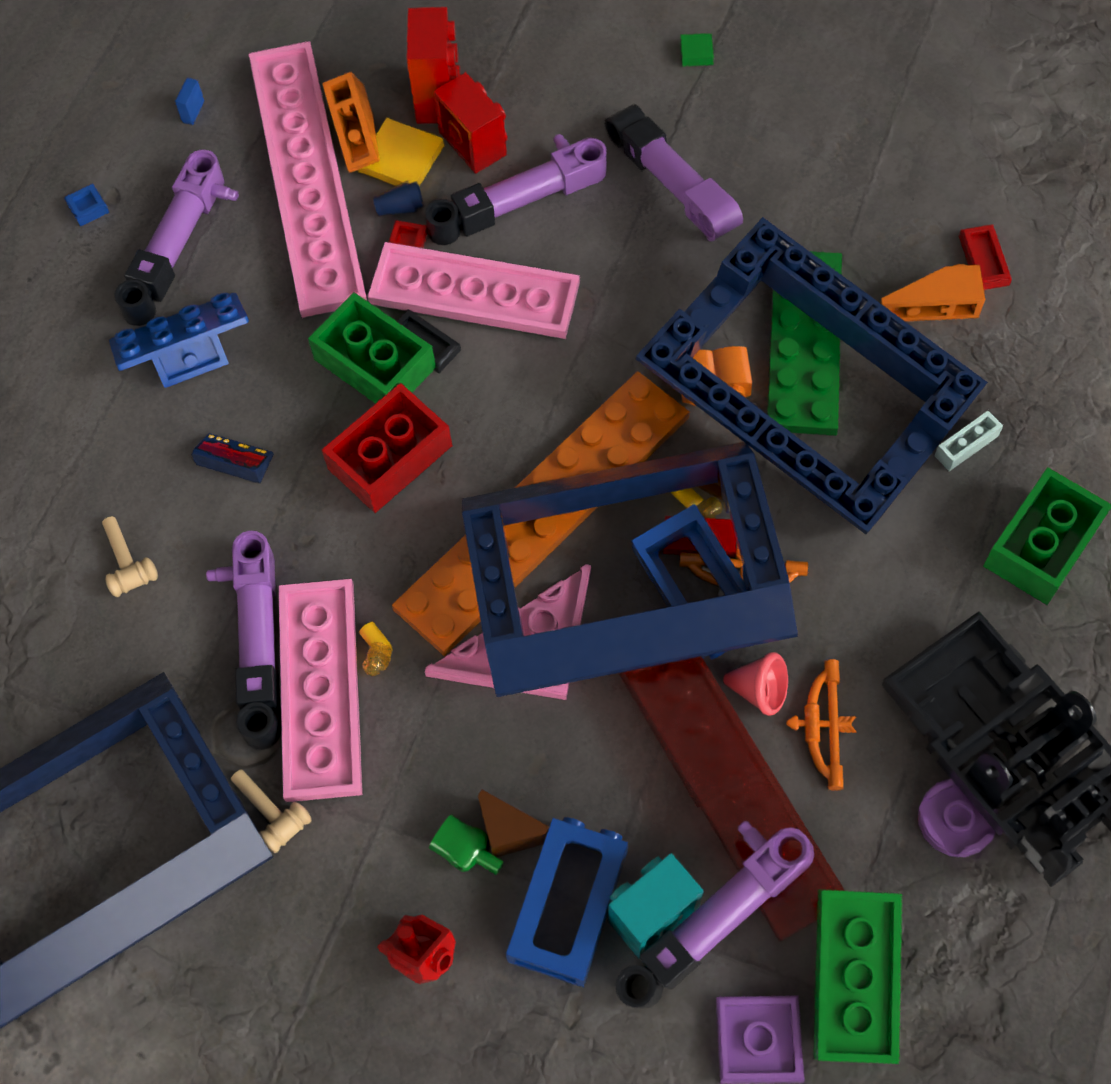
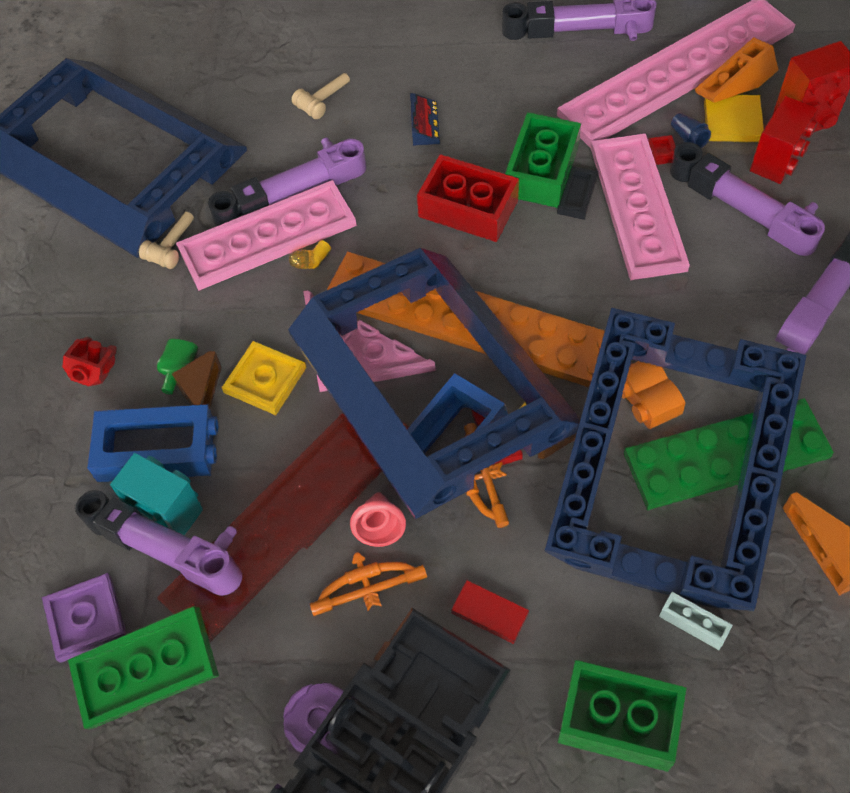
camera: 70 degrees right, 5 degrees down
(181, 343) = (493, 56): blue bracket -> none
(523, 753) = (264, 377): none -> yellow tile
(897, 616) = (490, 612): none -> red tile

